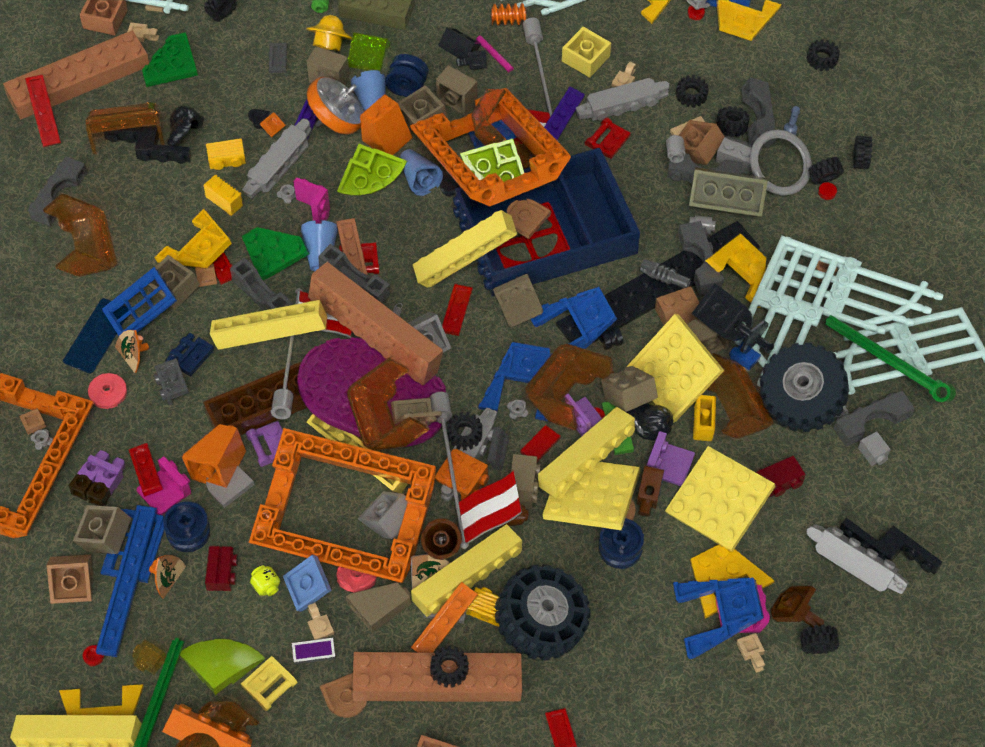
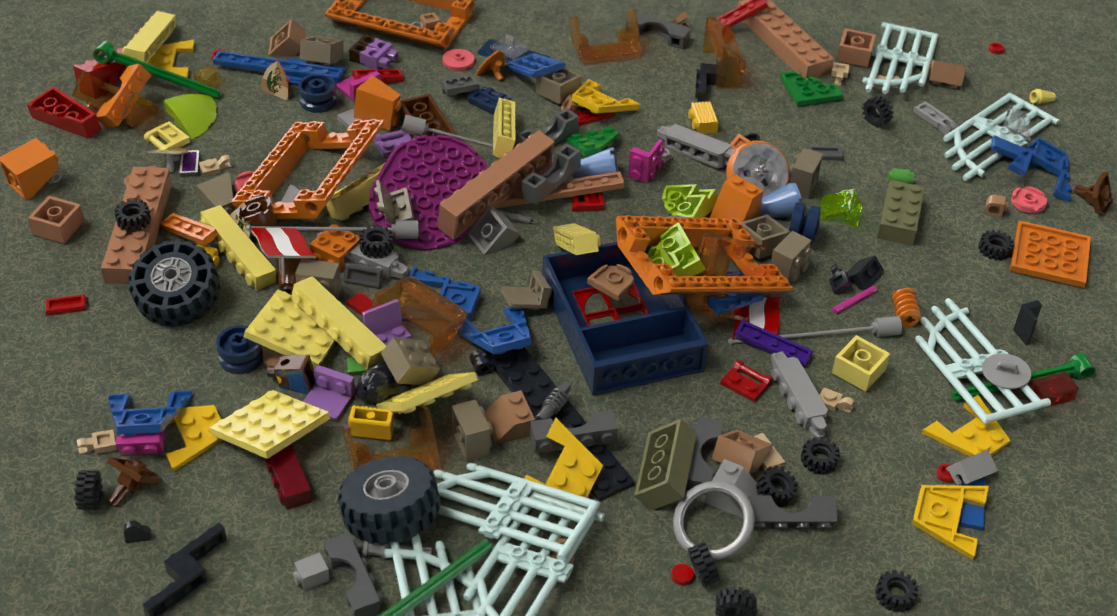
camera: 90 degrees right, 15 degrees down
(40, 171) = (680, 20): none -> medium nougat tile
(89, 335) = (510, 46): none -> clear slope
(181, 121) = (736, 88): black piece -> none
(220, 568) = (276, 112): dark red brick -> none
(223, 195) = (655, 114): yellow brick -> none
(265, 580) = (258, 134): neon yellow head -> none
(307, 583) = (255, 153): medium blue plate -> none
(309, 663) = (170, 158): none -> light grey shield
(329, 33) = (850, 173): yellow helmet -> none
(371, 411) = (417, 177): clear orange windscreen -> none
(456, 309) = (521, 257): red tile -> none
(675, 148) = (720, 417): light grey brick -> none
(706, 222) = (626, 447): light grey brick -> none
(725, 317) = (453, 438): black plate -> none
(746, 360) = (445, 464): blue bracket -> none
(791, 125) = (775, 547): sand blue piece -> none
(855, 595) = (136, 532): none -> black tile
(856, 559) = (173, 534): light grey hinge -> none

